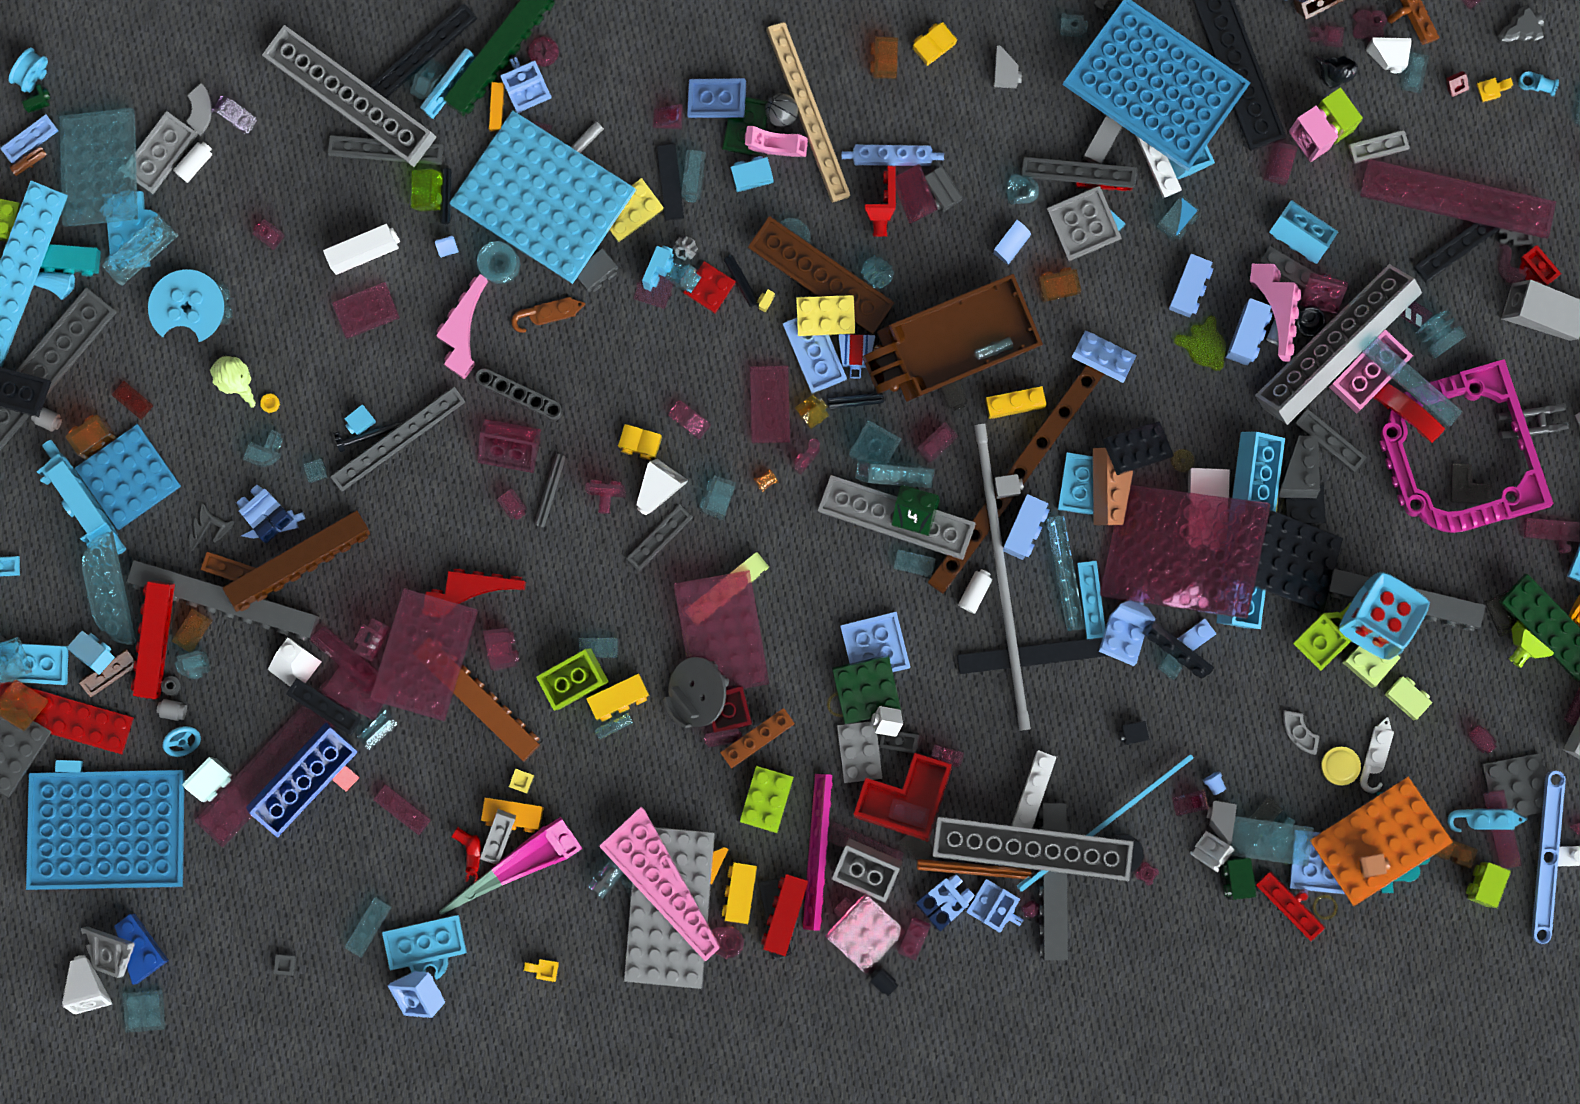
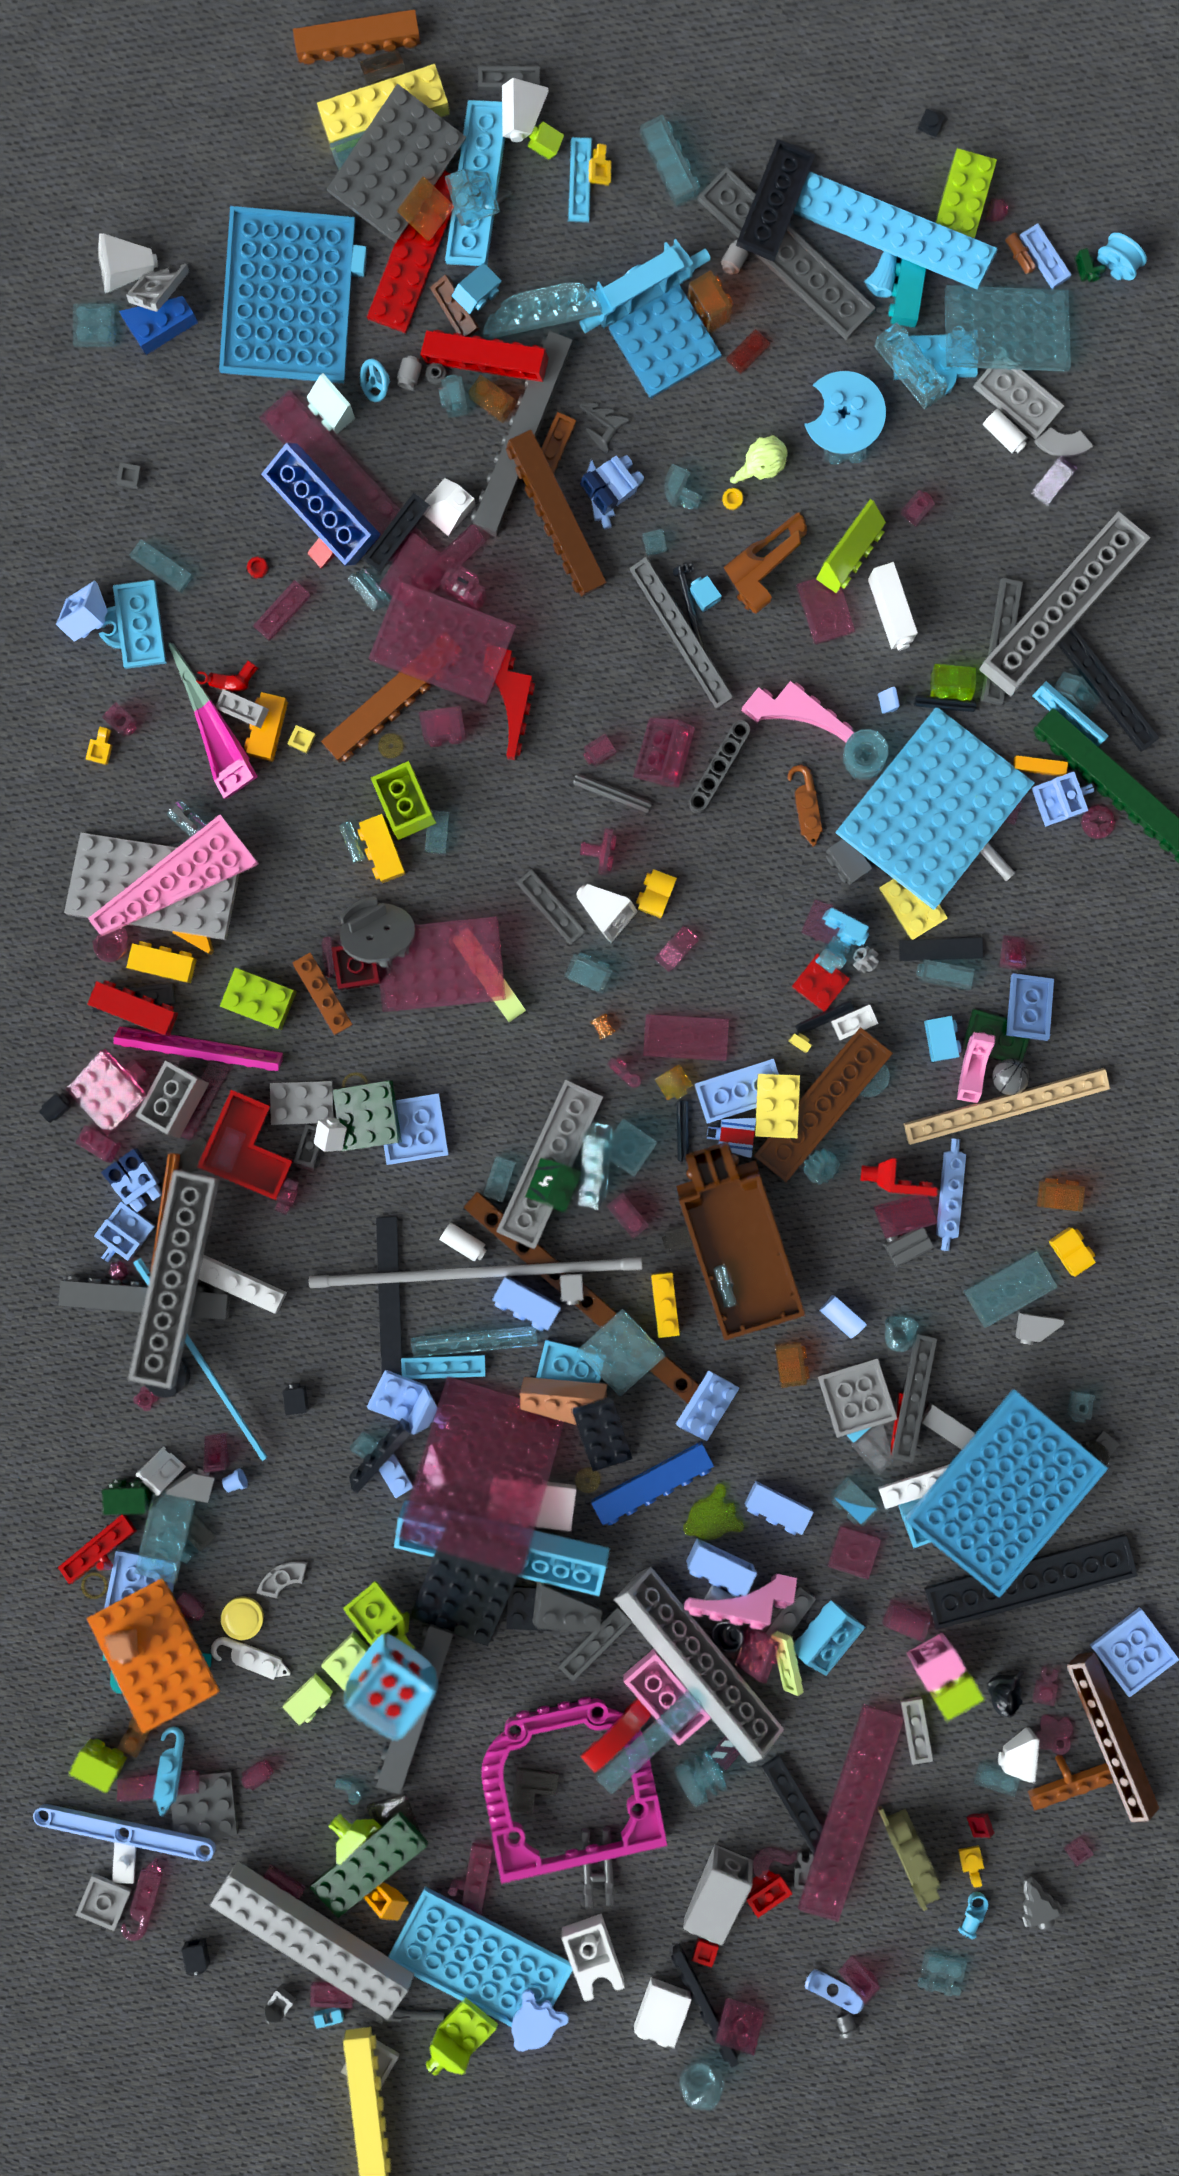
camera: 90 degrees right, 5 degrees up
(310, 289) = (852, 547): none -> lime slope
(337, 380) = (748, 569): none -> dark orange panel
(362, 837) = (257, 567): none -> red tile
(508, 956) = (114, 714): none -> clear pink brick
(526, 694) = (390, 752): none -> clear yellow wheel
(744, 256) = (850, 1023): none -> white plate
(973, 95) = (1010, 1289): none -> clear light blue plate
(1063, 437) = (621, 1352): none -> clear light blue plate
(1129, 204) = (874, 1448): none -> clear wing
(1179, 400) = (652, 1483): none -> blue brick
(1224, 215) = (854, 1552): none -> clear pink plate
(1331, 265) = (788, 1664): none -> yellowish green plate
(1335, 813) = (190, 1607): none -> clear pink brick
(1486, 652) = (351, 1789): none -> clear light blue arm
(1491, 140) = (912, 1856): none -> olive brick

